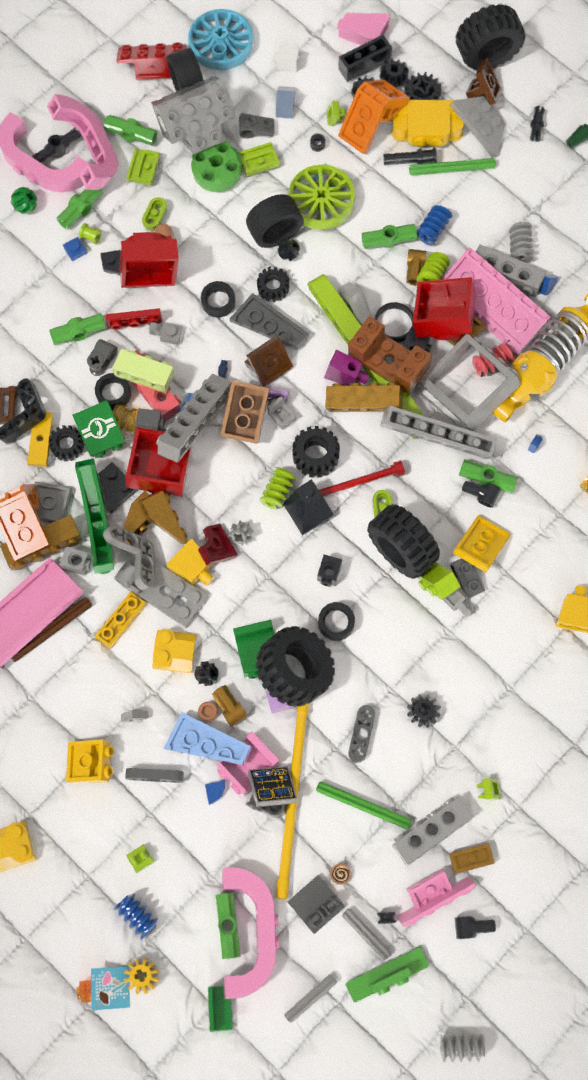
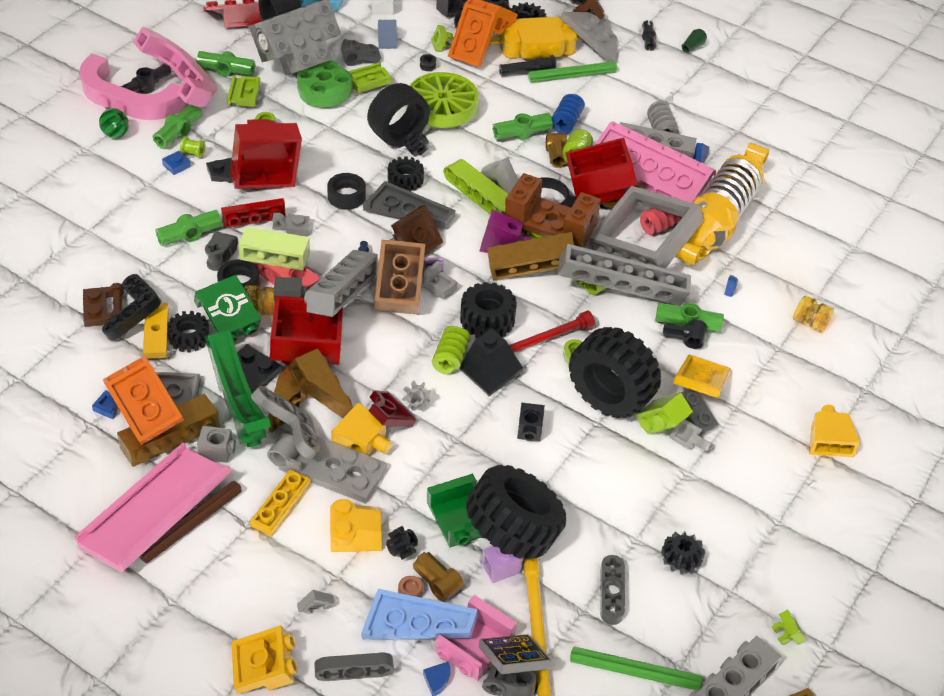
camera: 15 degrees left, 25 degrees down
(338, 606) = (558, 459): black tyre -> none

